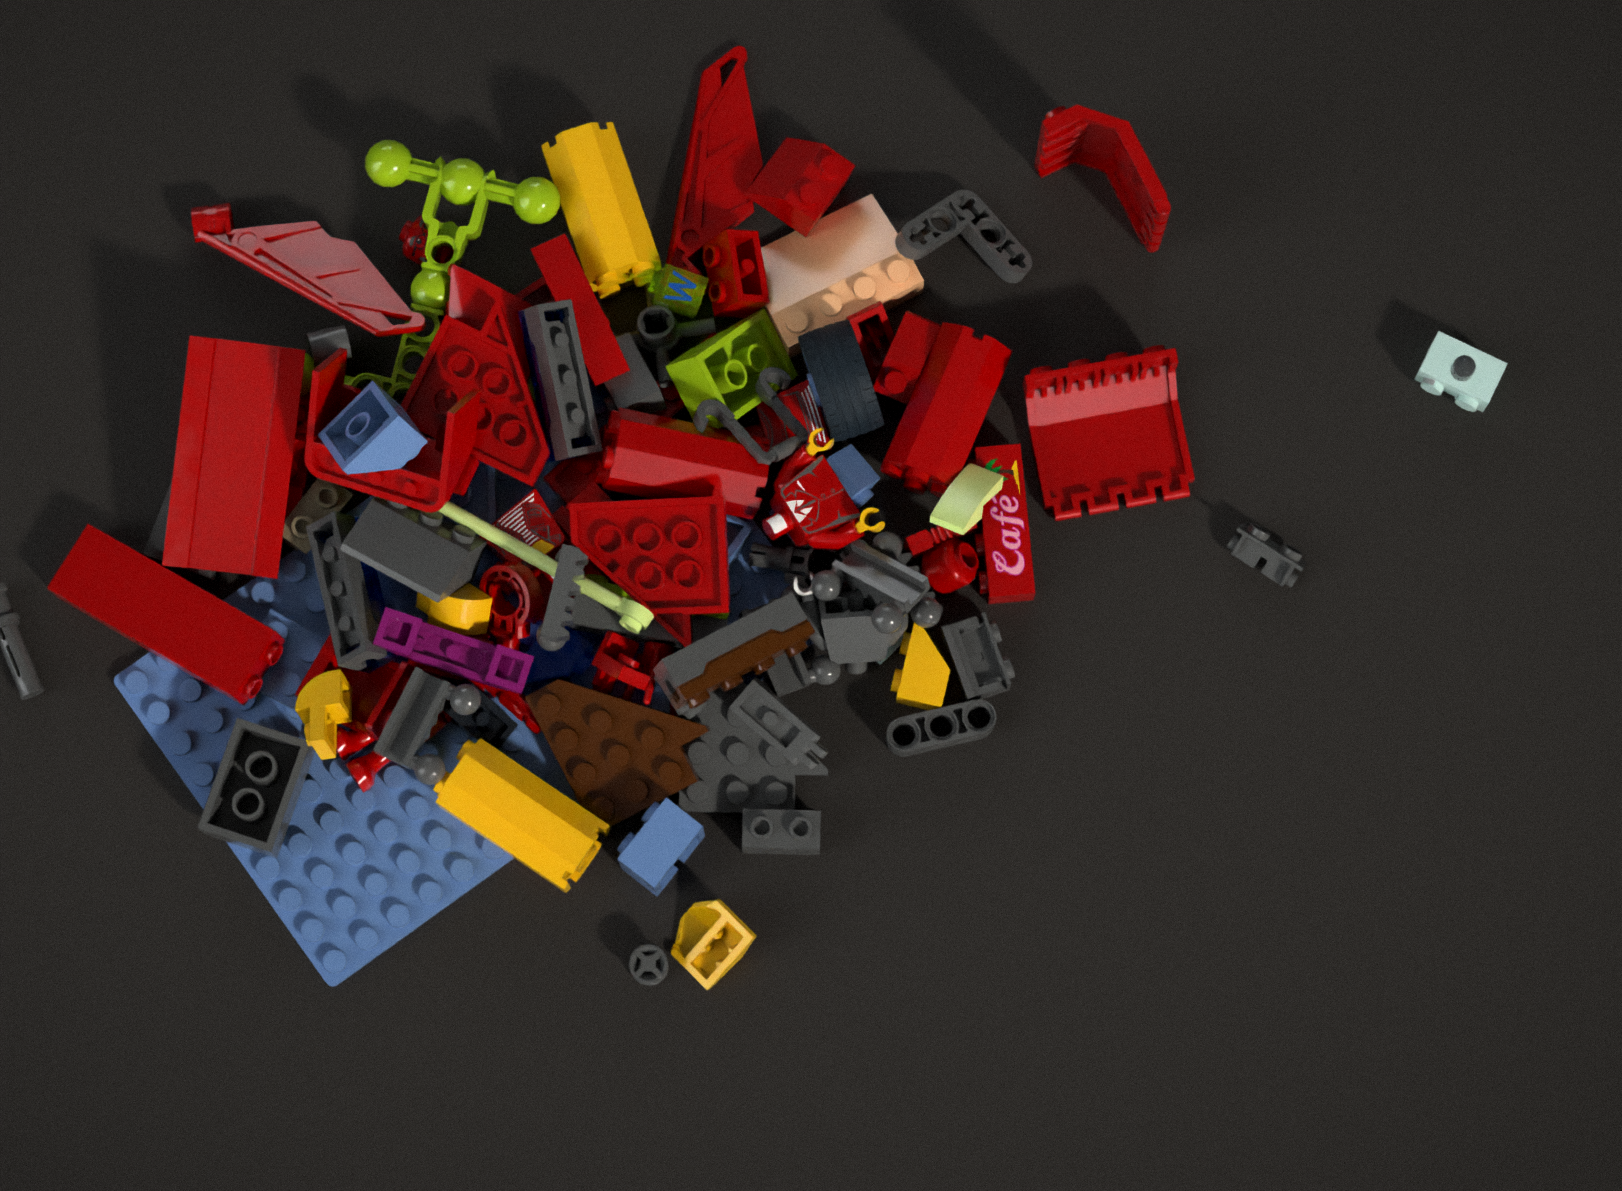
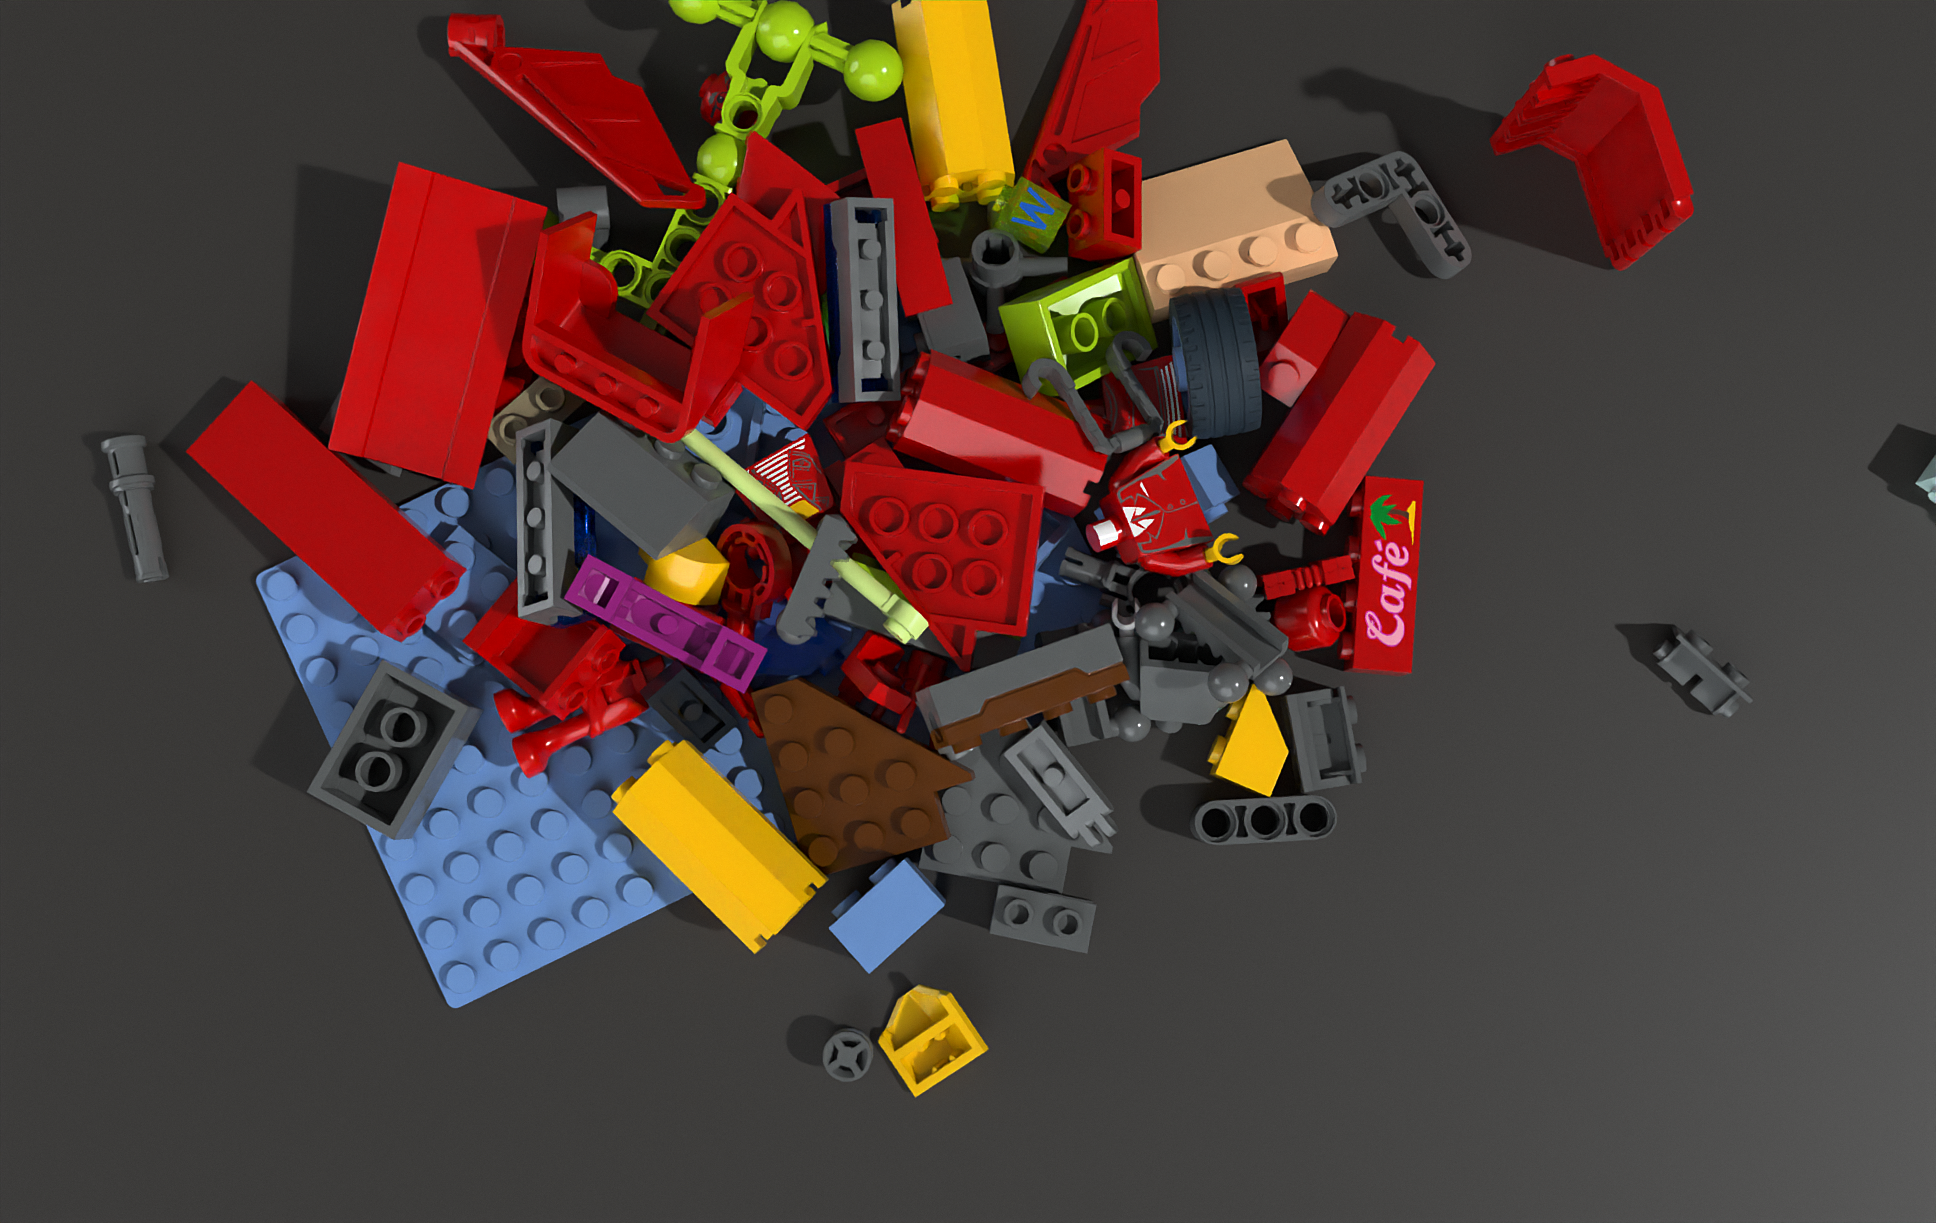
camera: 10 degrees right, 5 degrees up
(322, 706) = (491, 663): yellow brick -> none
(372, 434) = (608, 329): medium blue slope -> none
(413, 719) = (600, 704): dark grey gear -> none
(800, 182) = (1203, 108): red slope -> none
(964, 499) = (1348, 541): yellowish green slope -> none
(1108, 432) = (1531, 485): red hinge -> none

